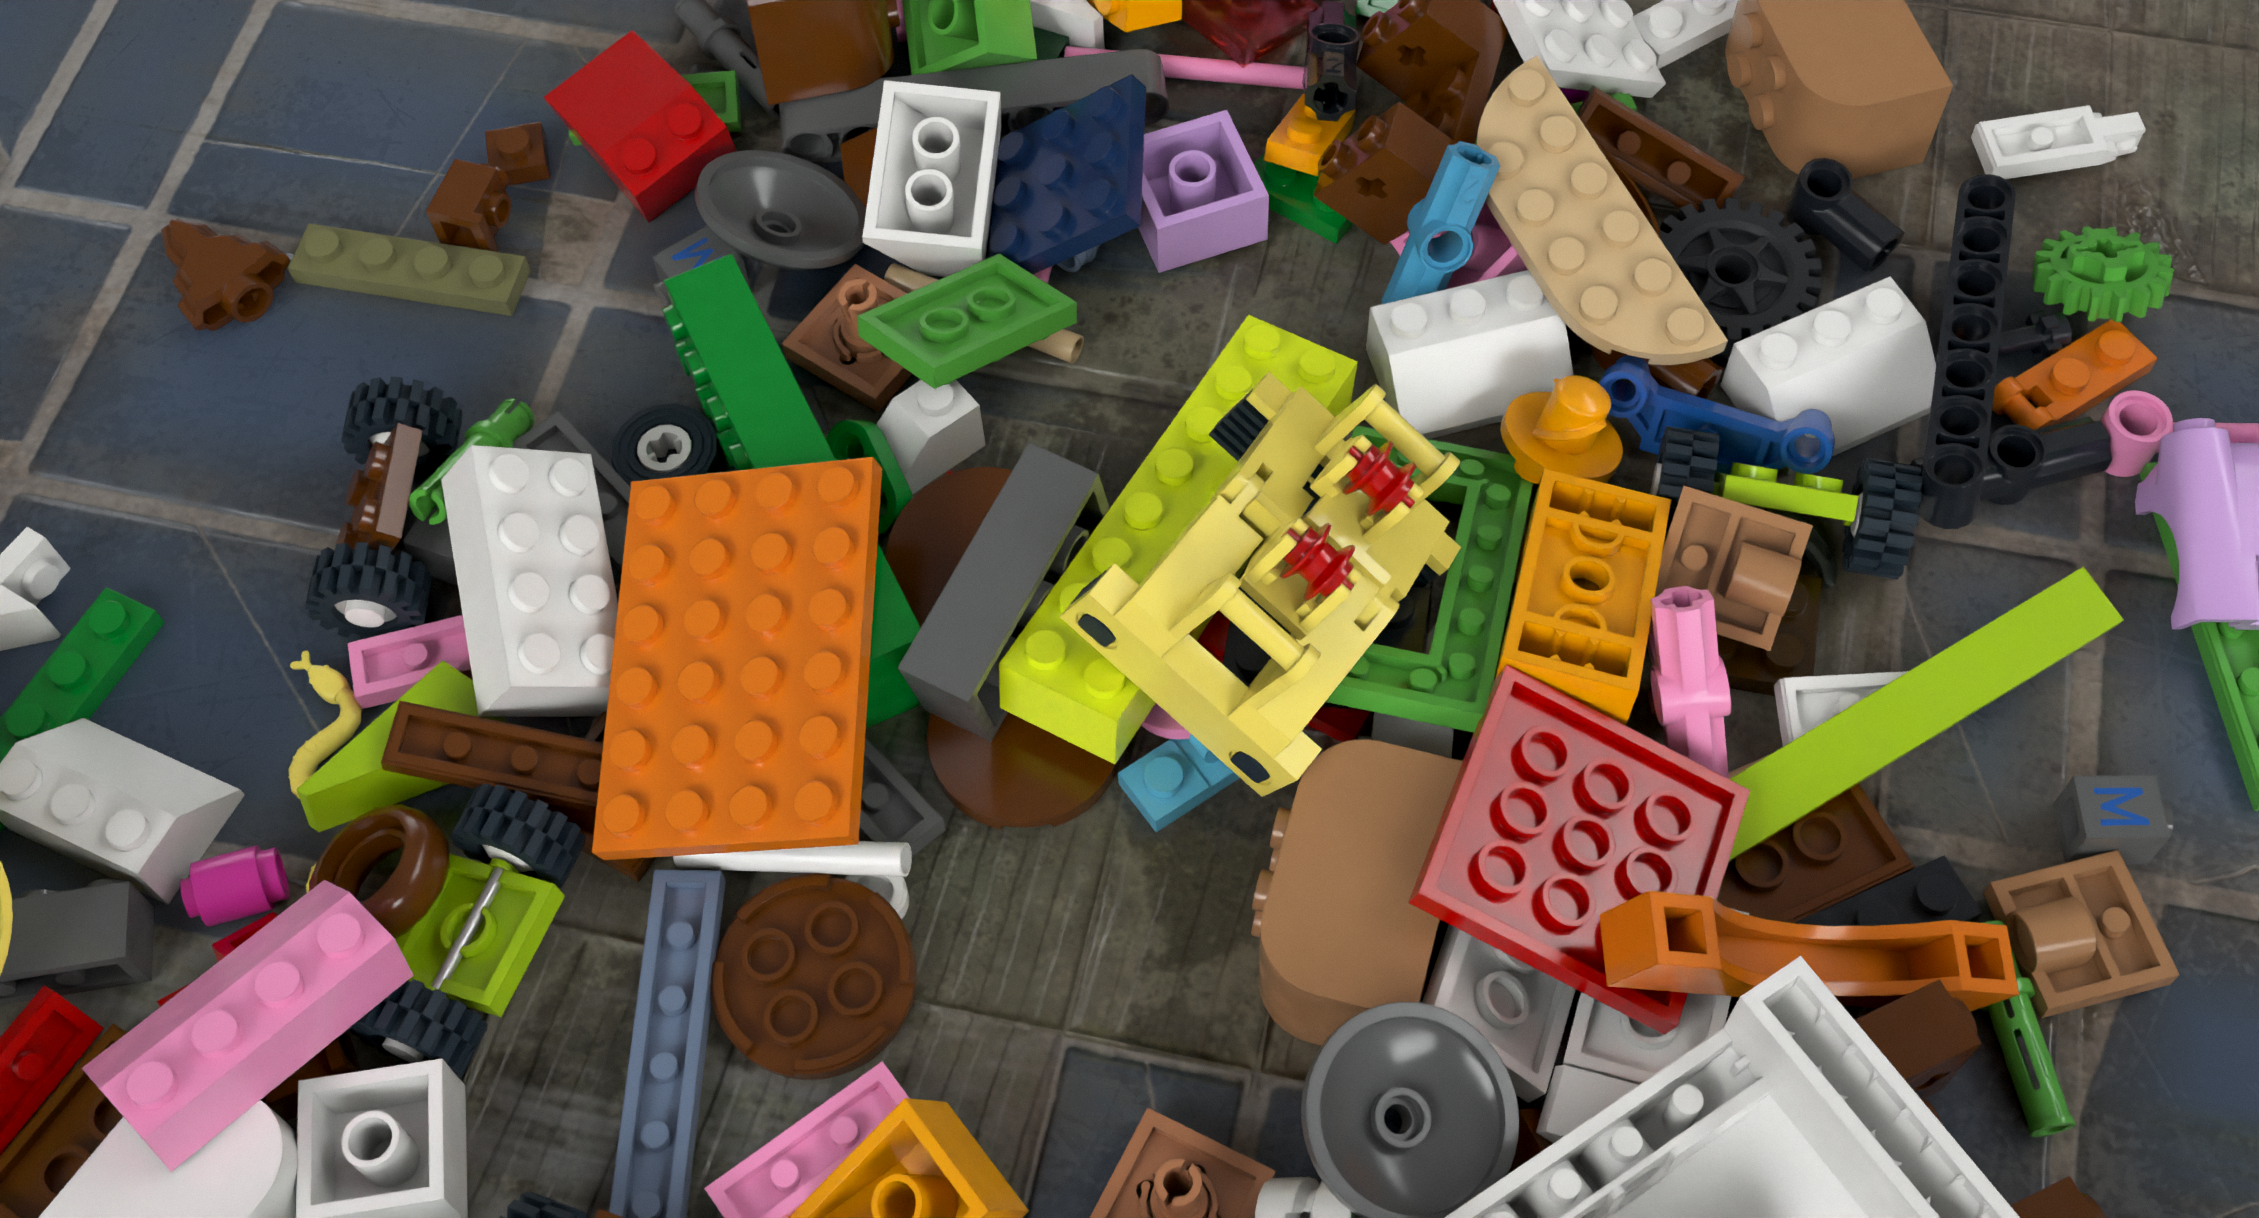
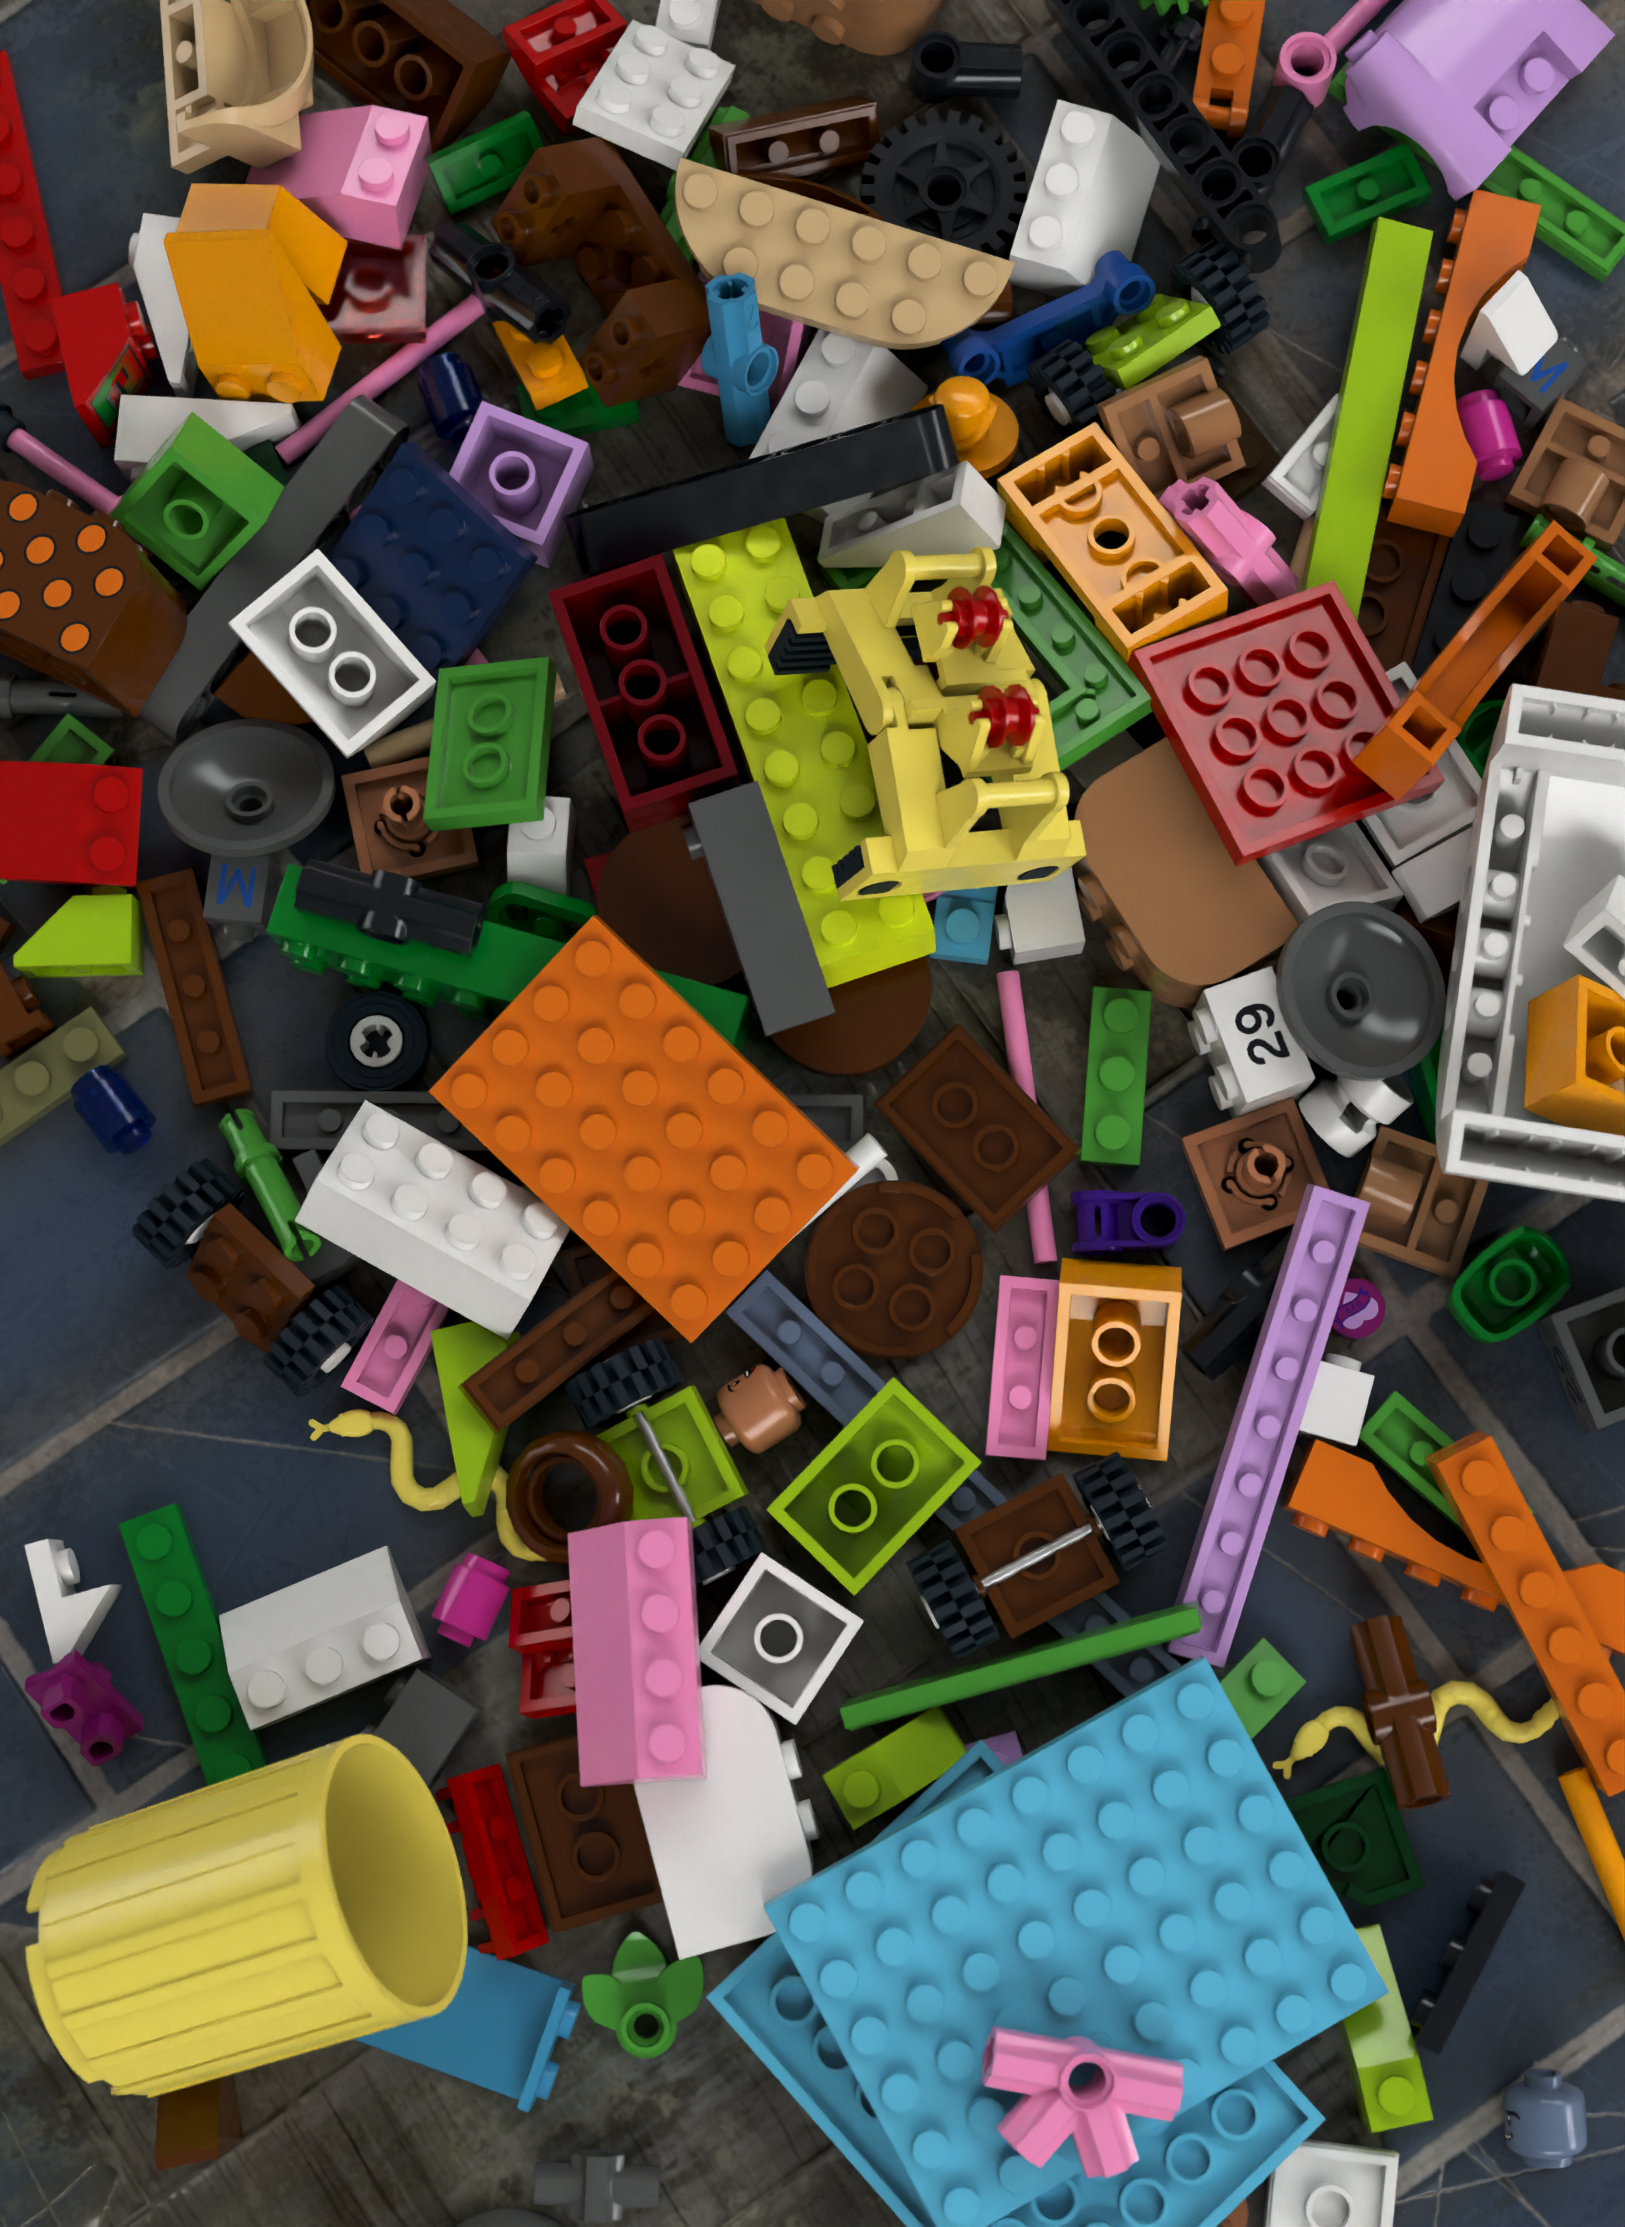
camera: 45 degrees left, 20 degrees up
(452, 329) = (113, 1110): none -> clear blue brick
(576, 213) = (88, 938): none -> lime slope
(579, 1110) = (873, 1486): none -> lime slope
(589, 966) = (759, 1408): none -> nougat head
(593, 312) = (195, 988): none -> reddish brown plate
(753, 332) = (390, 907): none -> black piece
(999, 936) = (977, 1128): none -> reddish brown tile
(1019, 1121) = (1121, 1222): none -> dark purple piece
(1048, 973) = (1021, 1072): none -> bright pink piece
(1110, 365) = (644, 691): none -> dark red brick
(1153, 1013) = (1115, 1077): none -> bright green plate
(1225, 92) = (449, 395): none -> clear blue brick
(1231, 825) = (1041, 920): none -> white slope
(1261, 1095) = (1248, 1045): none -> white brick
(1366, 327) = (763, 489): none -> black beam
(1492, 455) = (928, 517): none -> white slope
(2016, 822) = (1489, 433): none -> dark pink brick
(2121, 566) = (1365, 192): none -> green plate
(2121, 744) = (1511, 328): none -> white slope
(2155, 694) = (1437, 462): none -> orange arch

